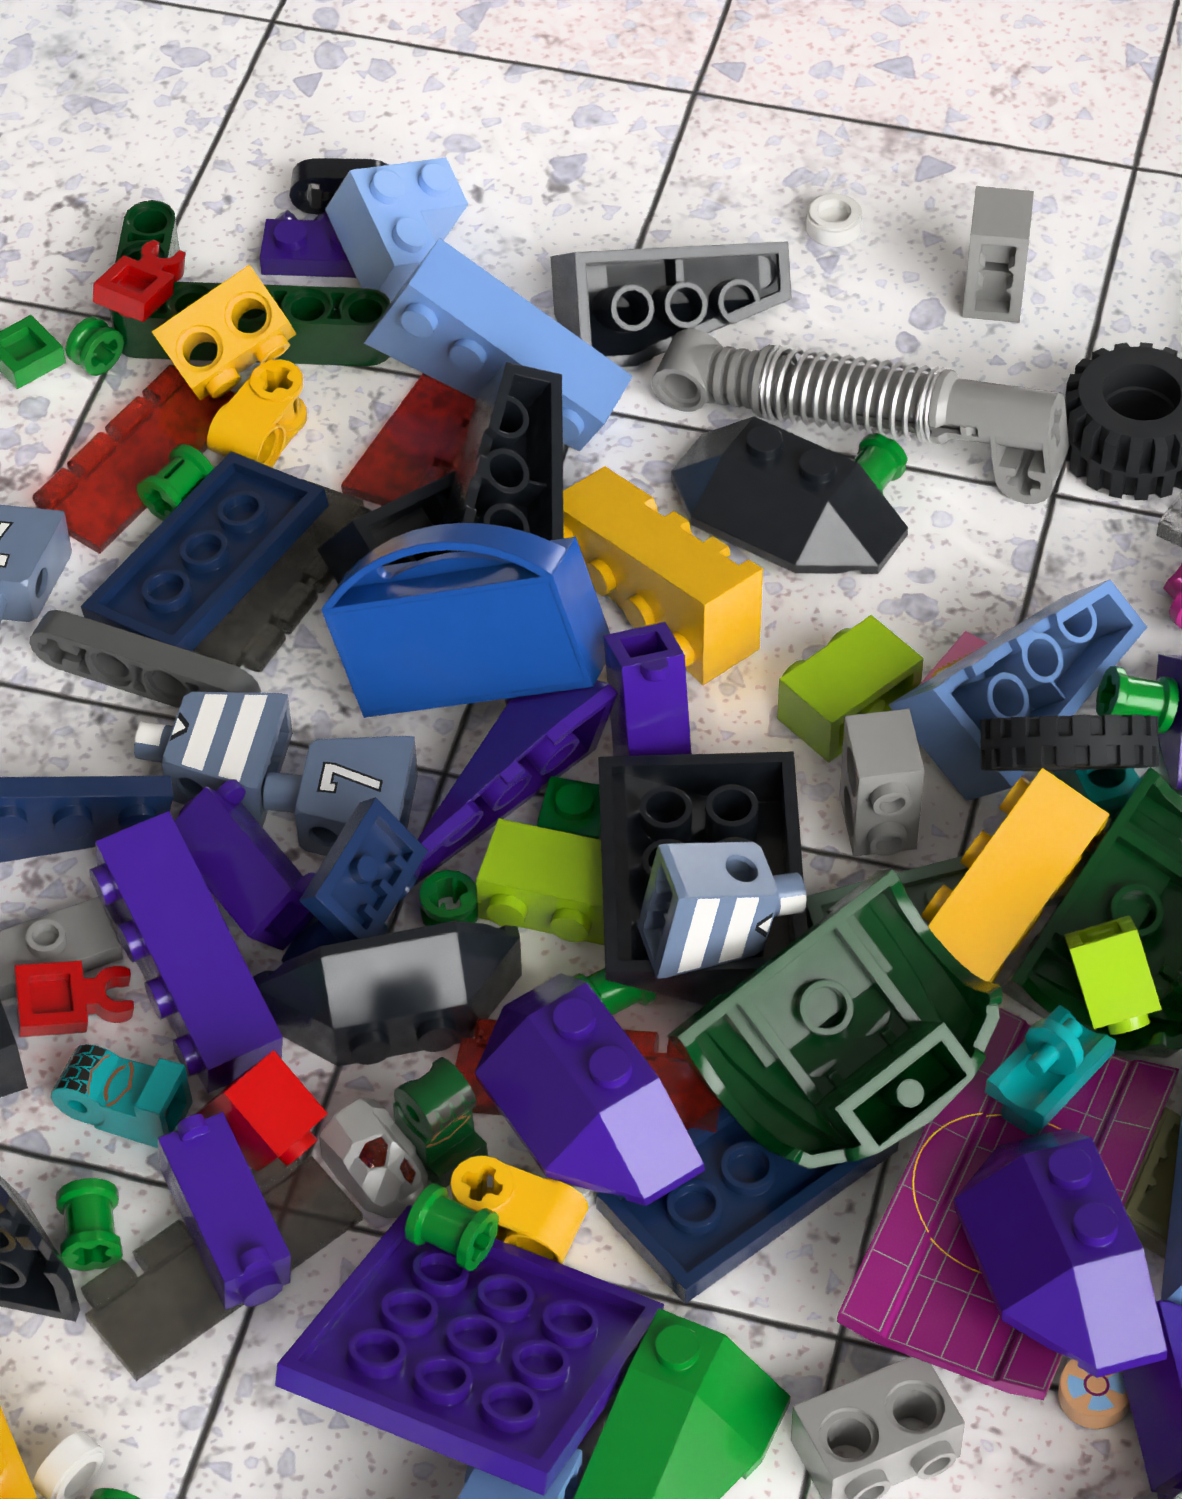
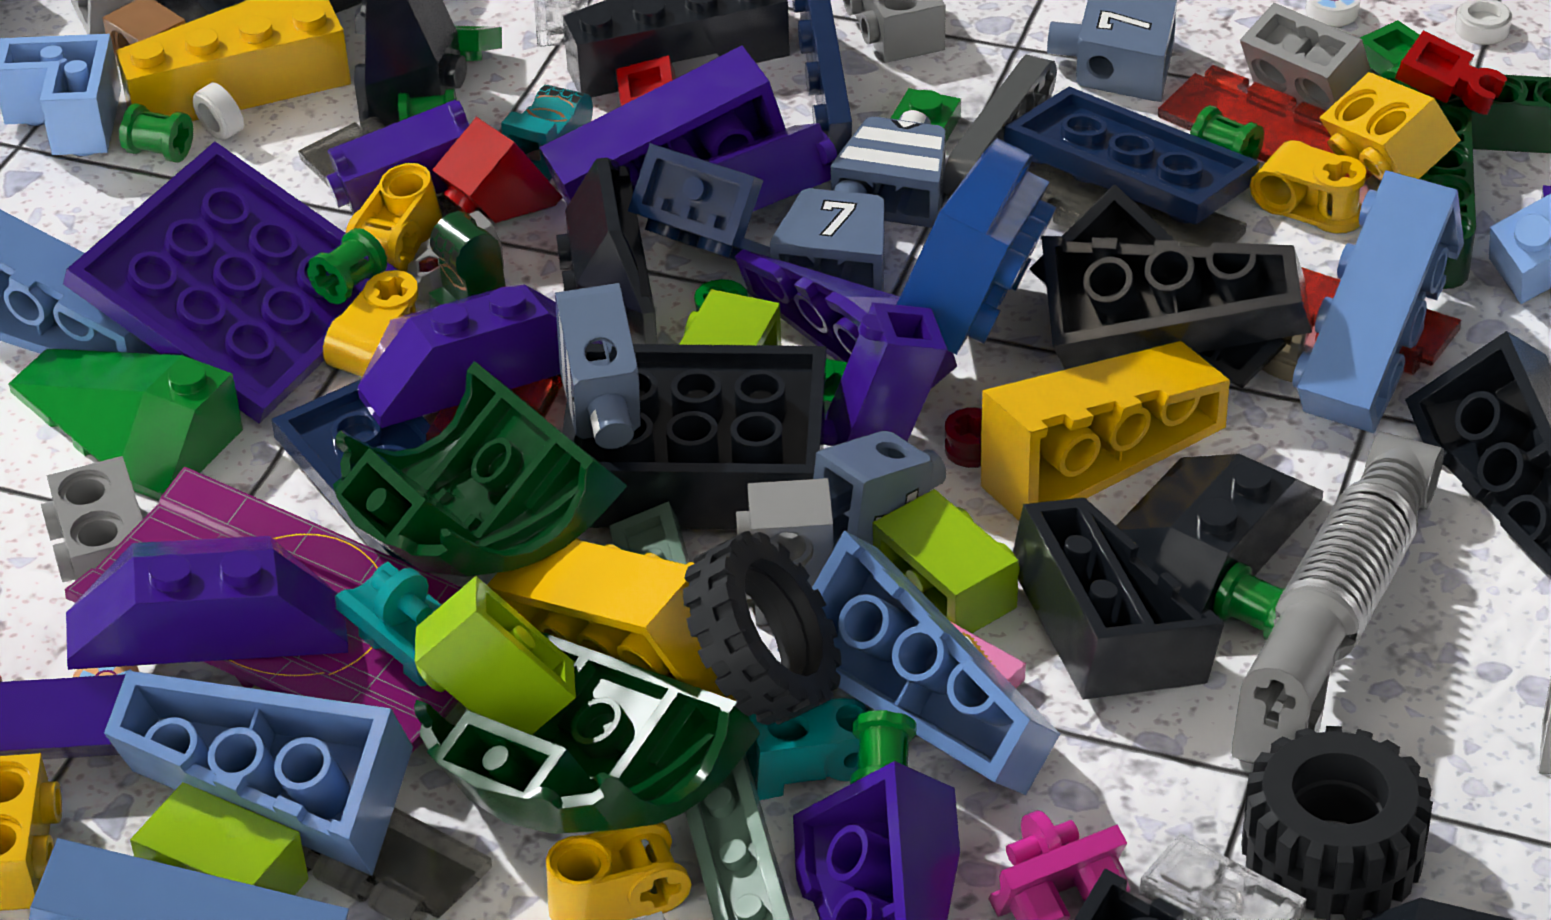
camera: 95 degrees right, 10 degrees down
(69, 404) = (1303, 56): none -> light grey brick
(101, 743) = (939, 108): none -> green plate
(337, 1219) = (400, 212): none -> yellow piece
(785, 715) = (874, 478): none -> sand blue torso
(907, 564) = (1105, 608): none -> black wedge

